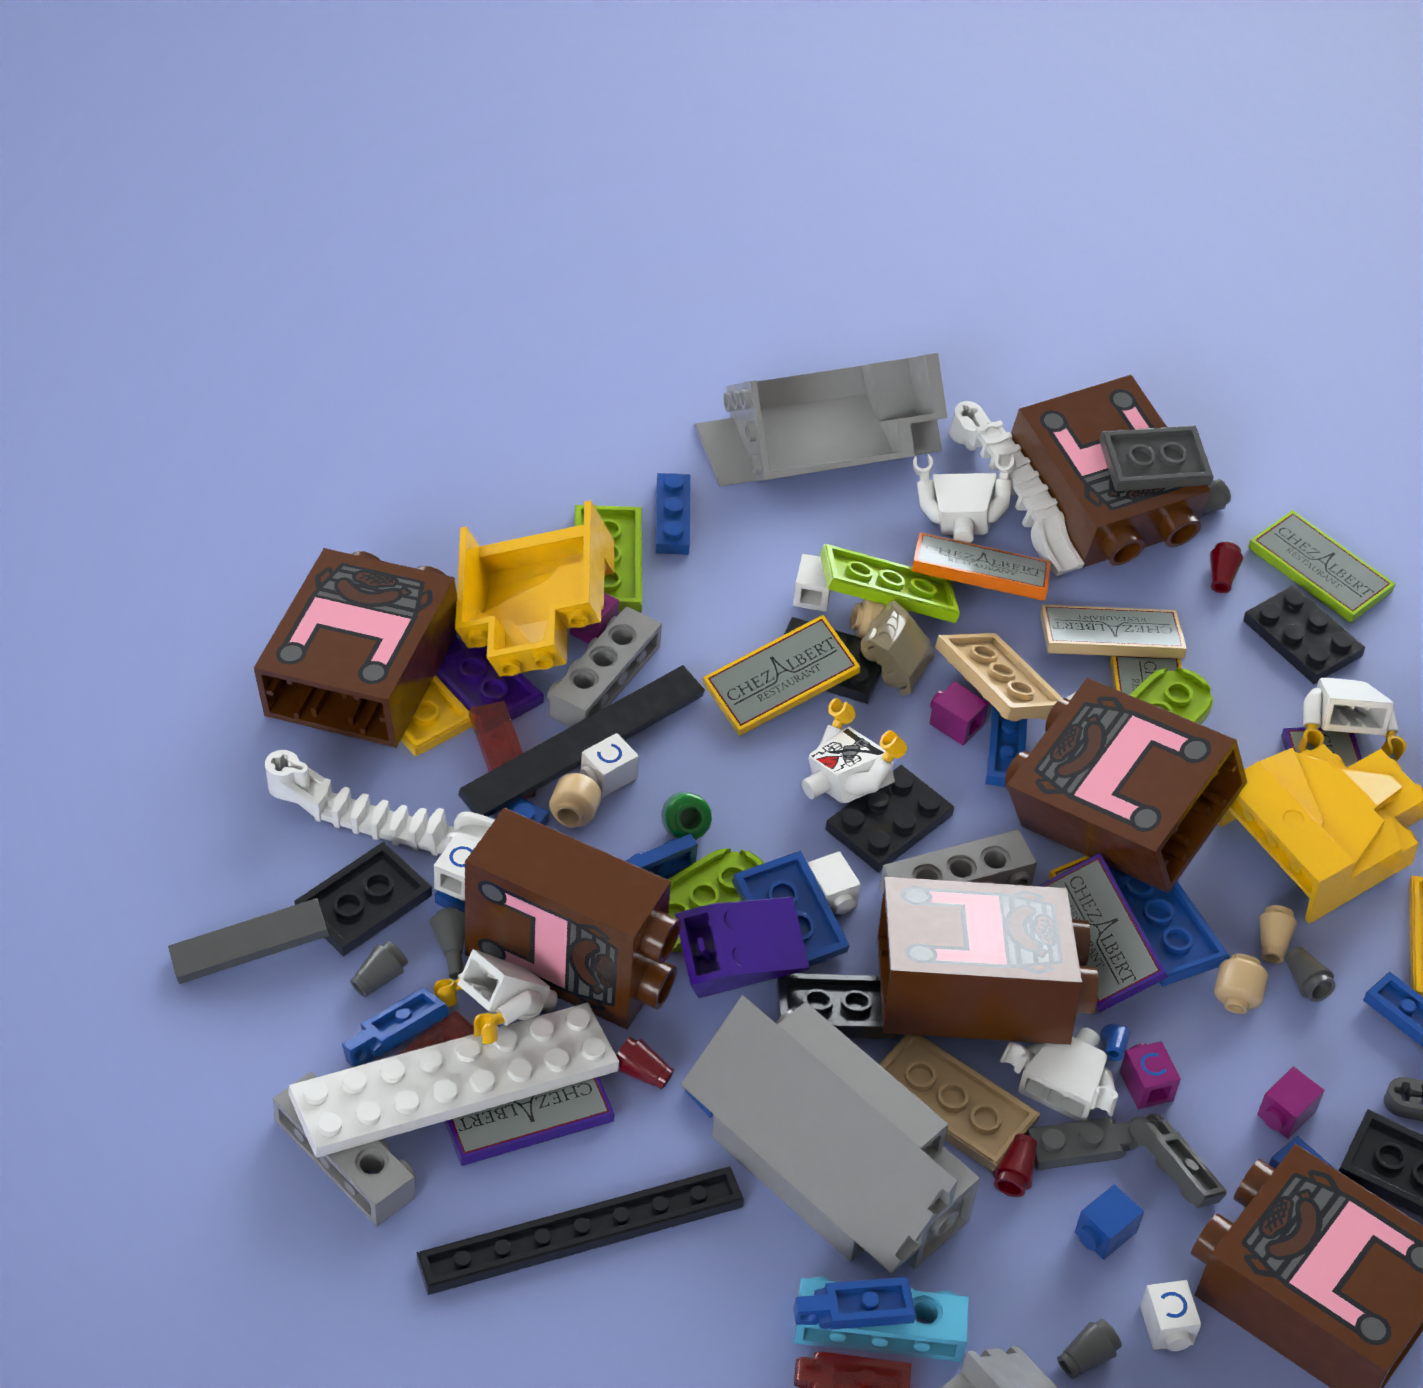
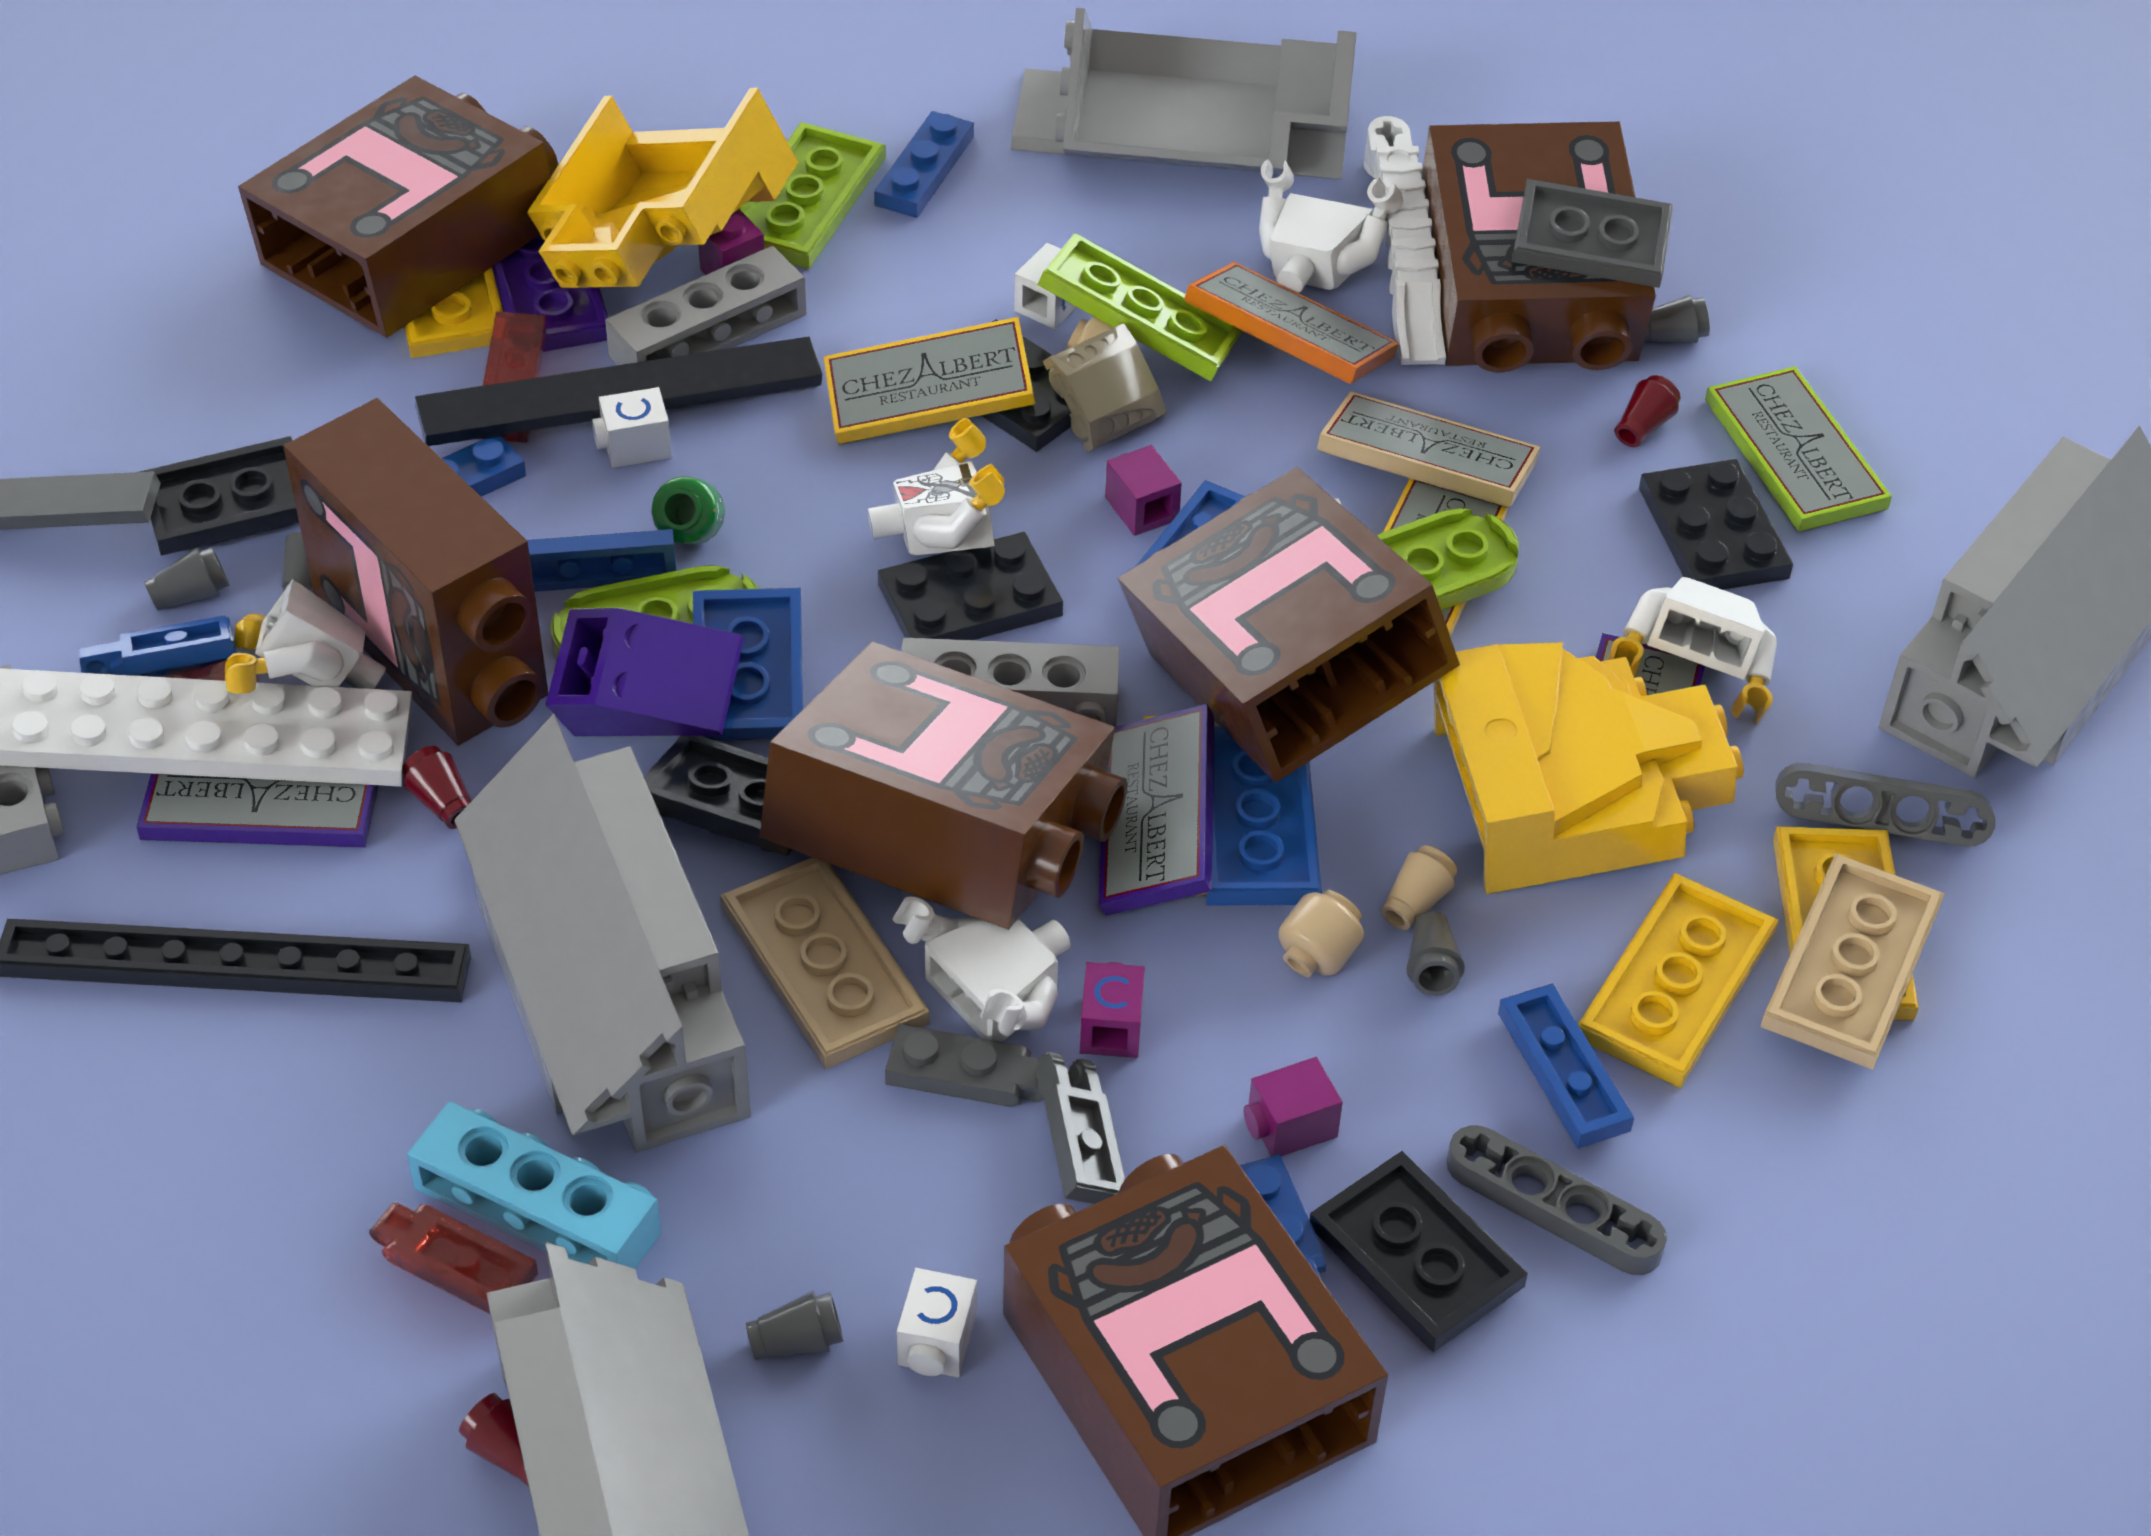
camera: 25 degrees right, 0 degrees up
(299, 784) = (249, 366): white piece -> none
(575, 800) = (561, 454): tan head -> none
(836, 882) = (827, 642): white brick -> none
(857, 1304) = (490, 1153): blue hinge -> none
(999, 675) = (1216, 449): tan plate -> none
(1016, 1167) = (846, 1065): dark red cone -> none
(1108, 1222) = (928, 1176): blue brick -> none
(1115, 1040) = (1089, 946): blue arm -> none

